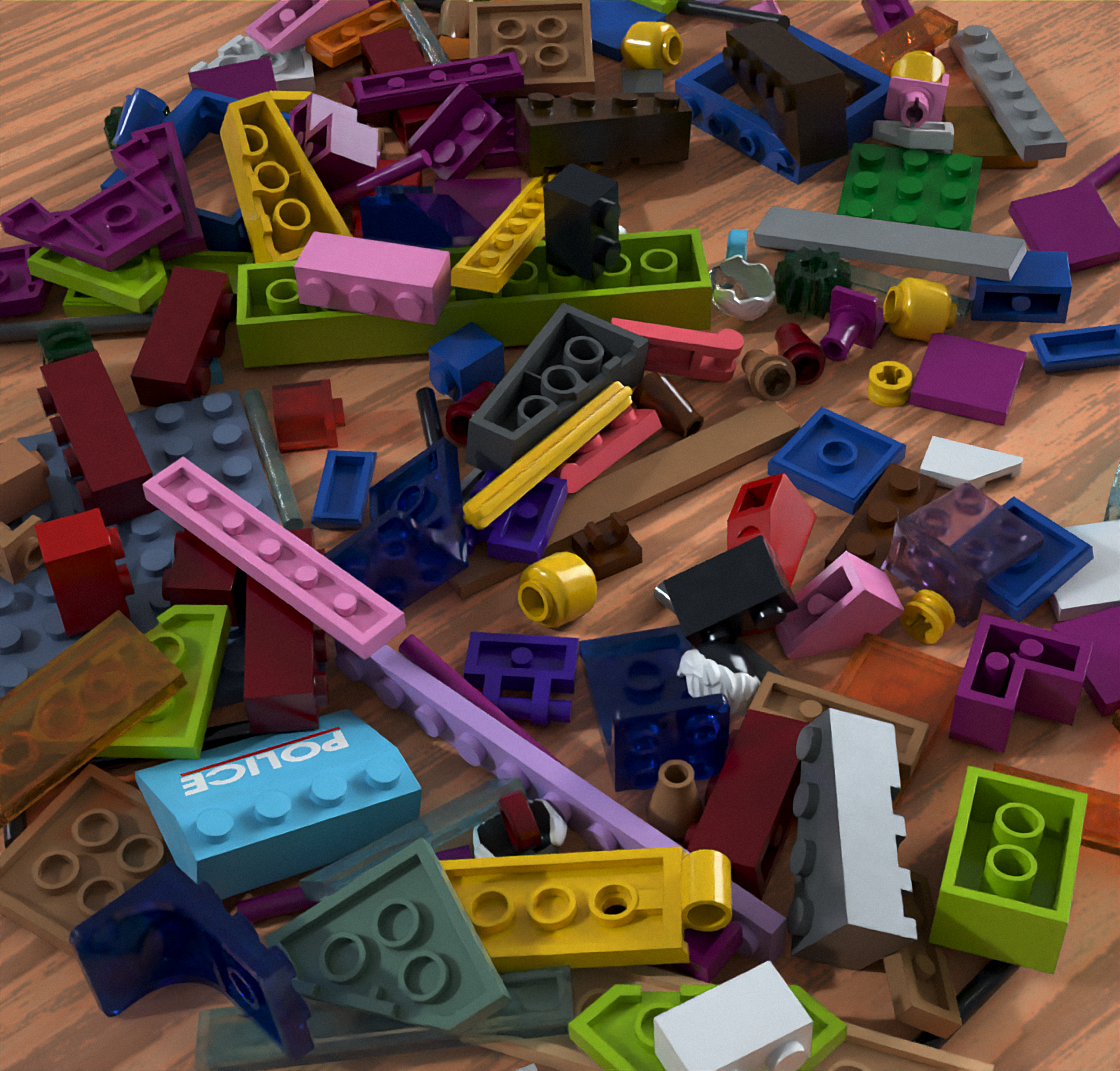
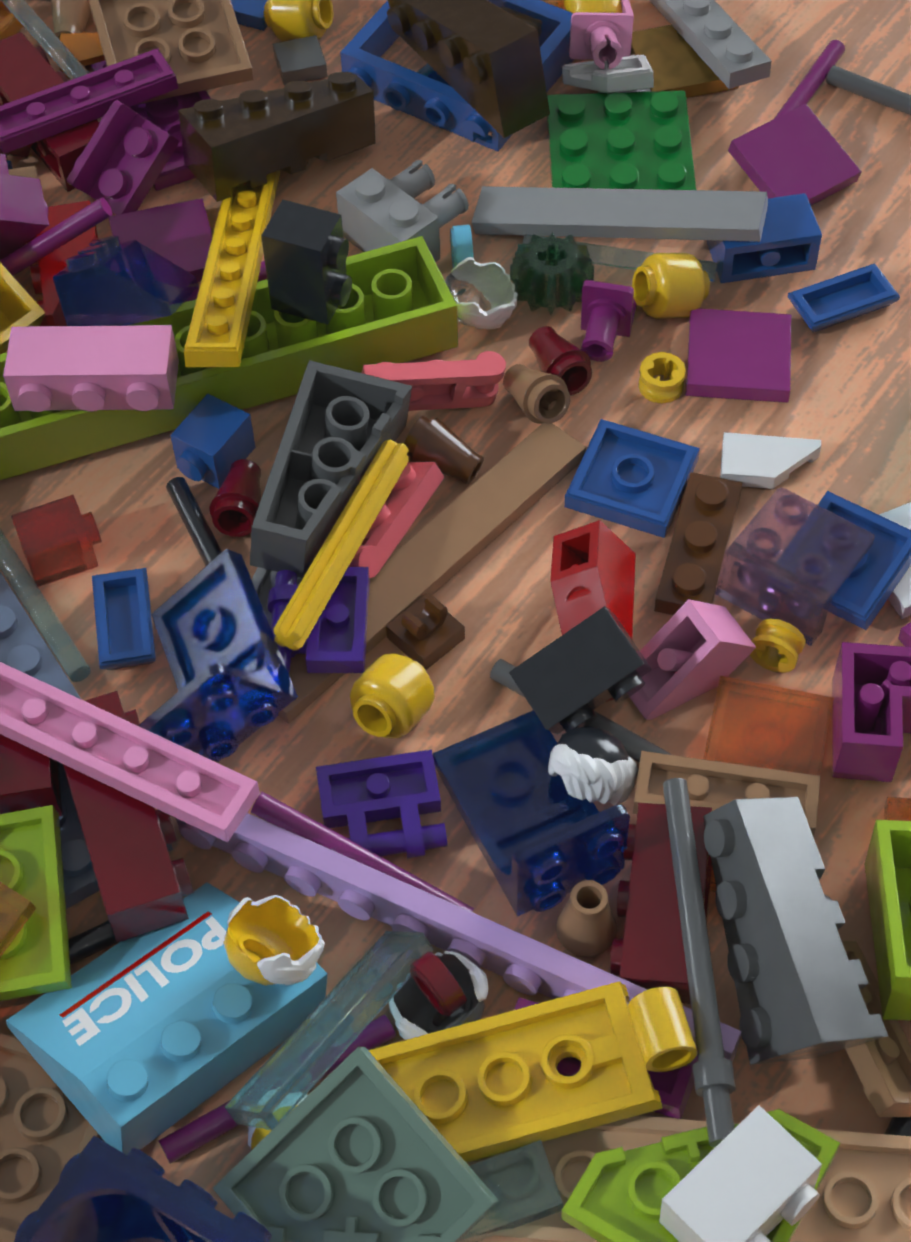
camera: 15 degrees left, 10 degrees up
(375, 742) = (272, 941): none -> yellow hair
(673, 205) = (385, 212): none -> light grey brick
(744, 936) = (712, 1072): none -> dark grey bar

